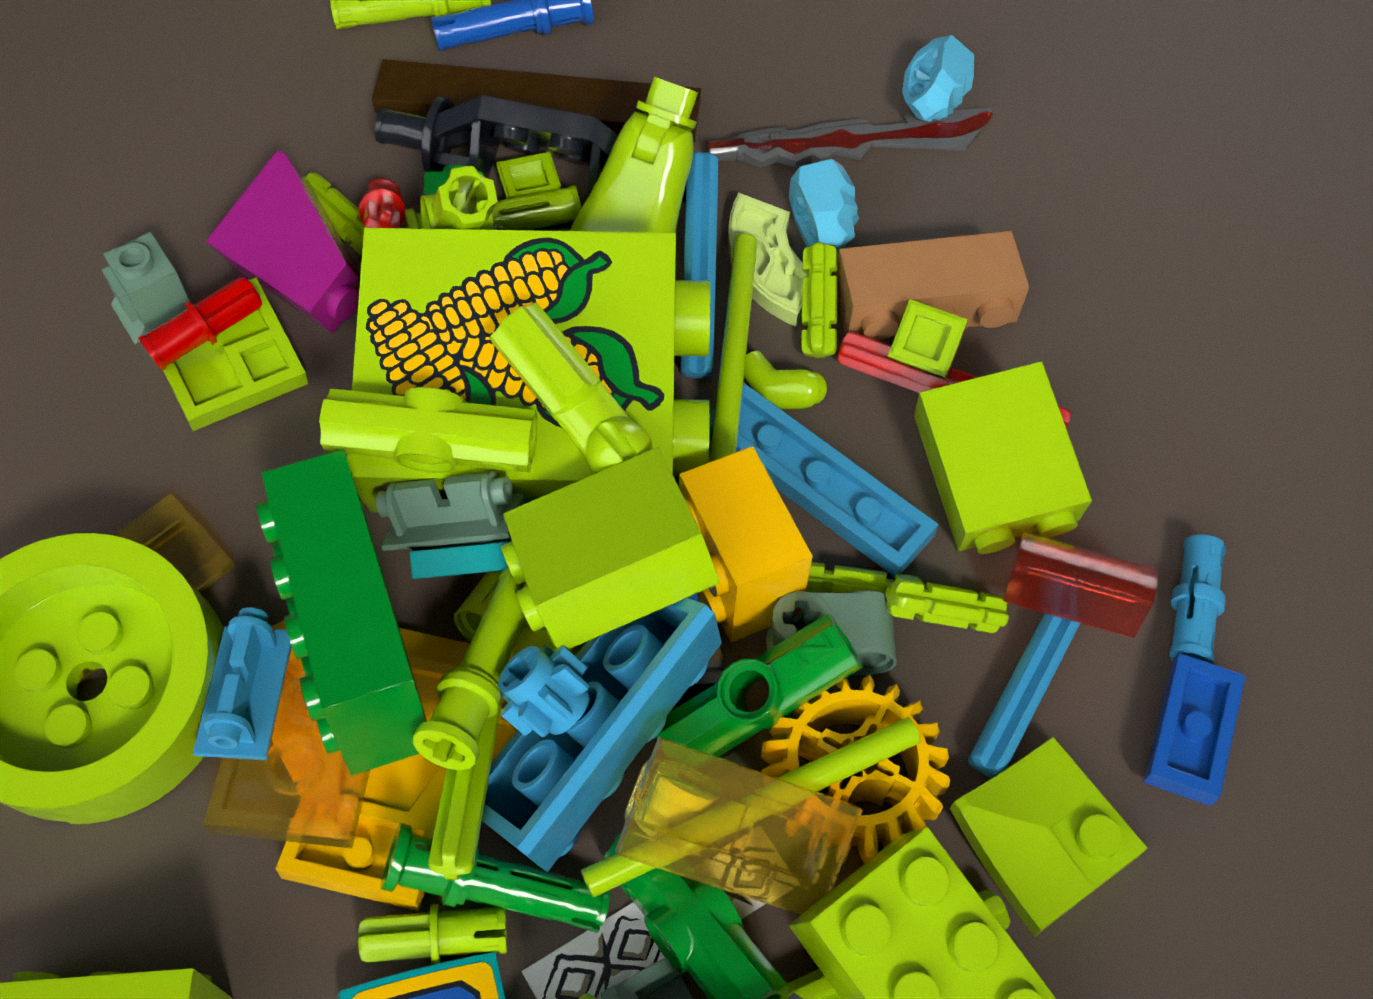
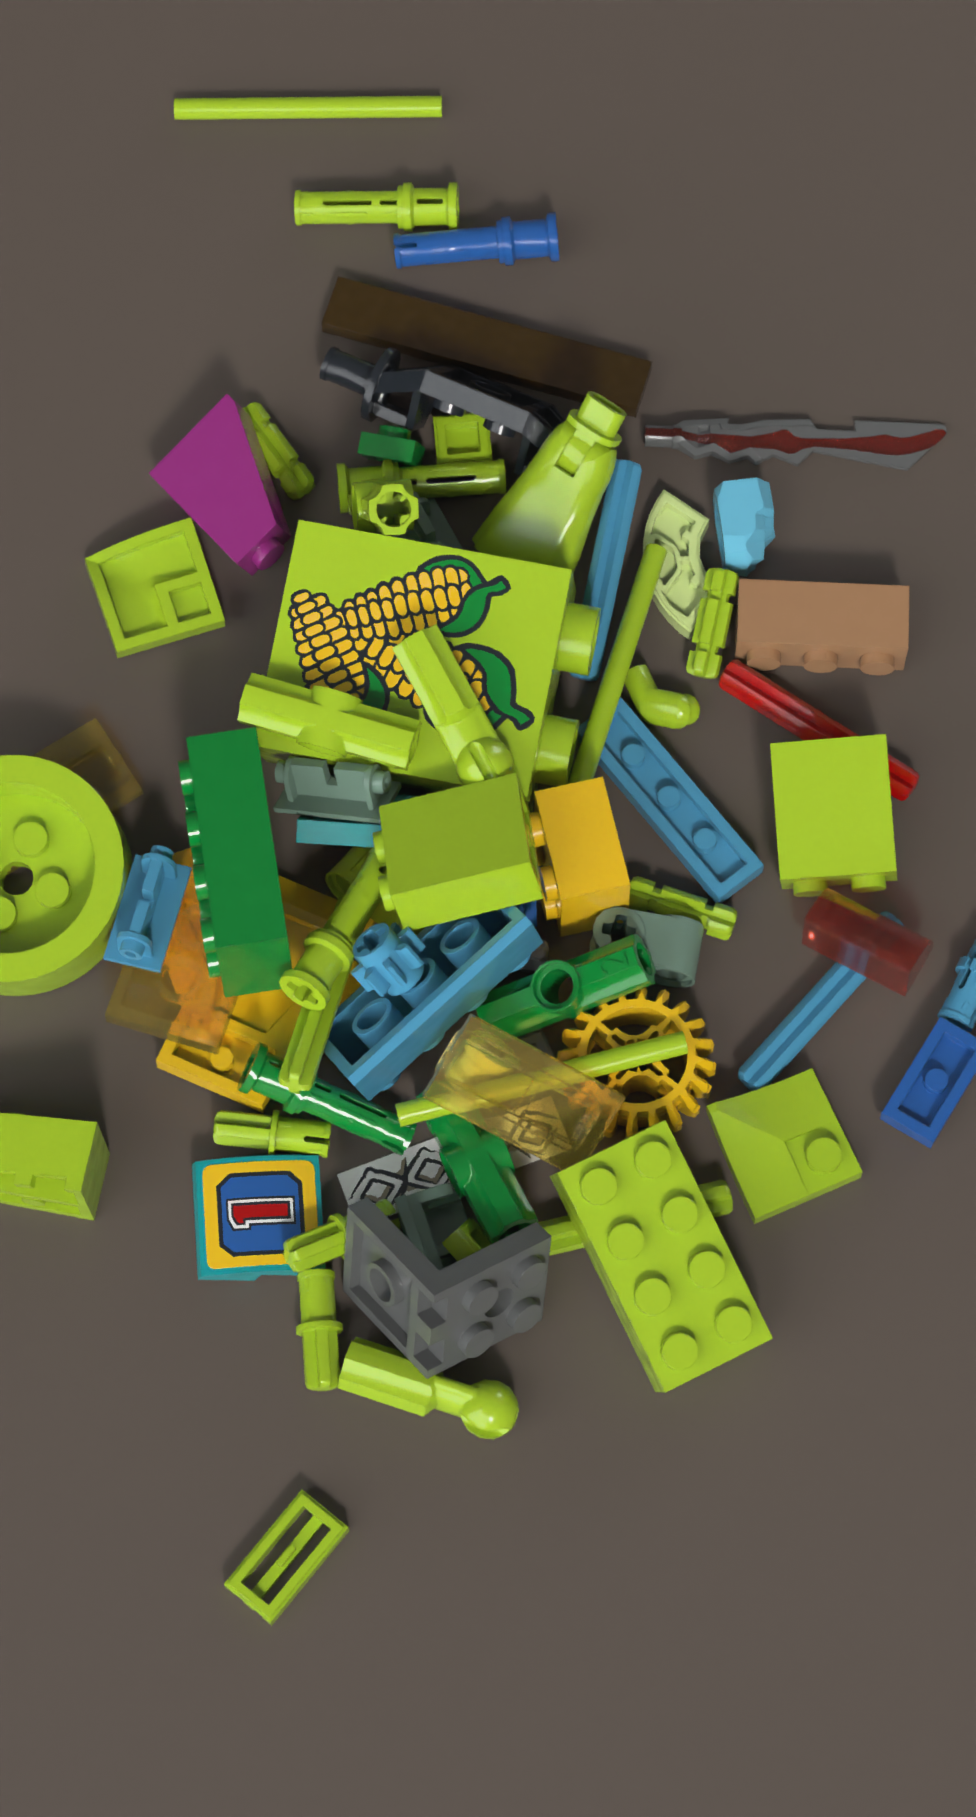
camera: 15 degrees right, 10 degrees up
(143, 285) = (87, 509): sand green window -> none
(201, 322) = (138, 559): red axle -> none
(382, 205) = (316, 461): red axle -> none
(927, 338) = (799, 685): lime tile -> none
(938, 78) = (891, 394): medium azure rock -> none
(946, 605) = (750, 939): lime axle -> none

